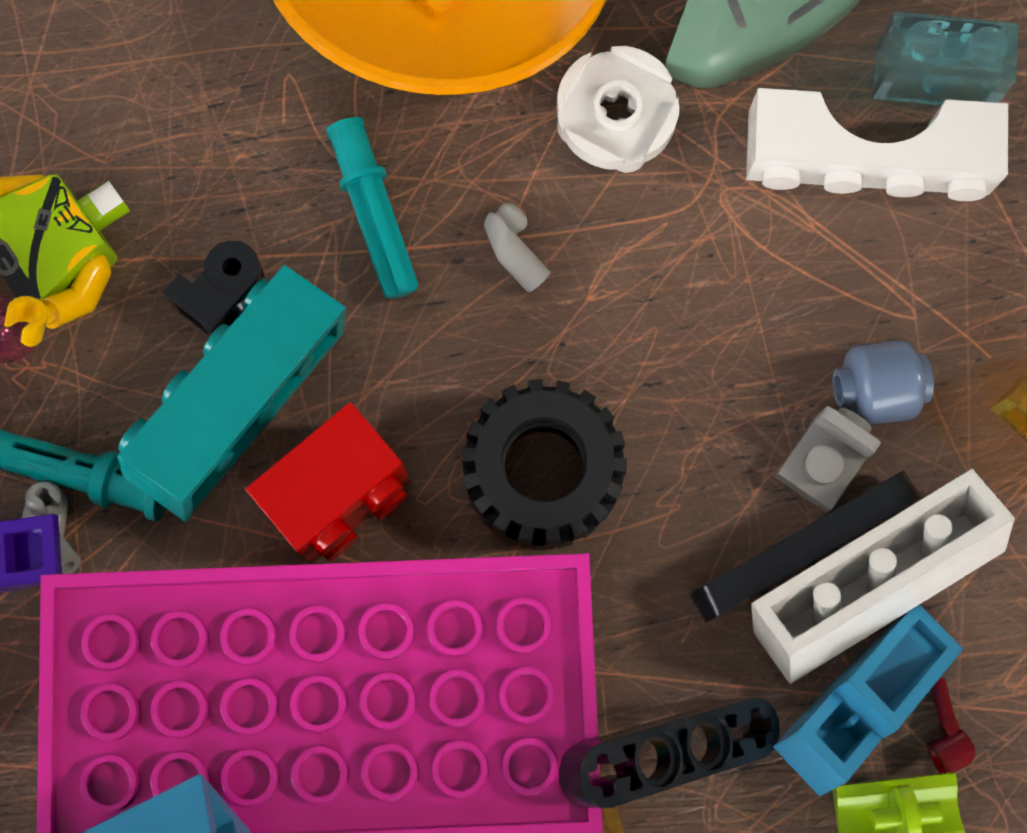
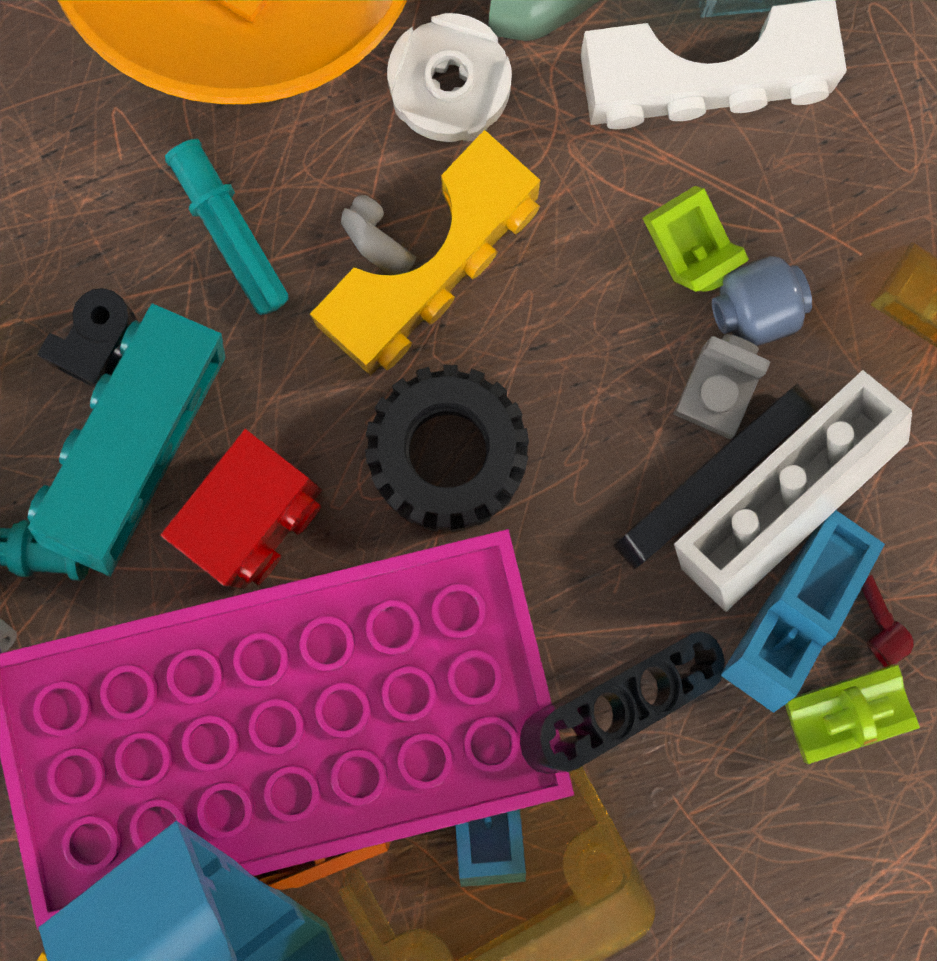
camera: 10 degrees left, 5 degrees up
(499, 318) = (376, 313): none -> yellow arch
(826, 310) = (693, 241): none -> lime bracket

